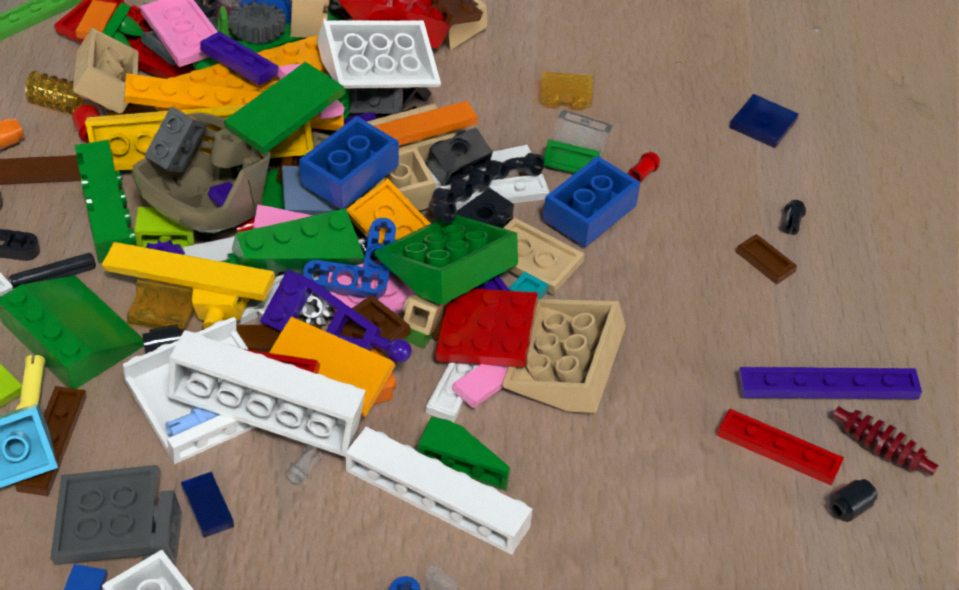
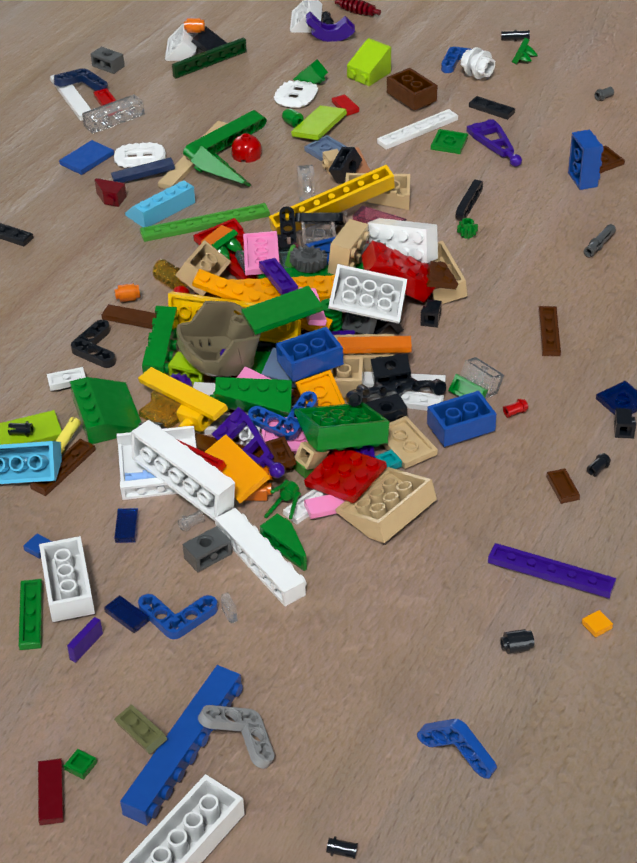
camera: 30 degrees right, 5 degrees down
(54, 270) = (122, 376): black axle -> none
(105, 514) = (67, 512): dark grey plate -> none
(168, 525) = (93, 528): dark grey bracket -> none
(176, 140) = (210, 315): dark grey bracket -> none
(352, 519) = (207, 549): none -> dark grey brick
(420, 380) = (288, 491): none -> green plant
(458, 62) = (431, 313): none -> black brick
(566, 90) = (493, 347): clear yellow bracket -> none
(618, 50) = (549, 331): none -> reddish brown tile
(780, 446) = (494, 598): red tile -> none
(790, 152) = (624, 423): none -> black brick
(885, 440) = (565, 614): dark red piece -> none
(929, 438) = (597, 623): none -> light orange tile

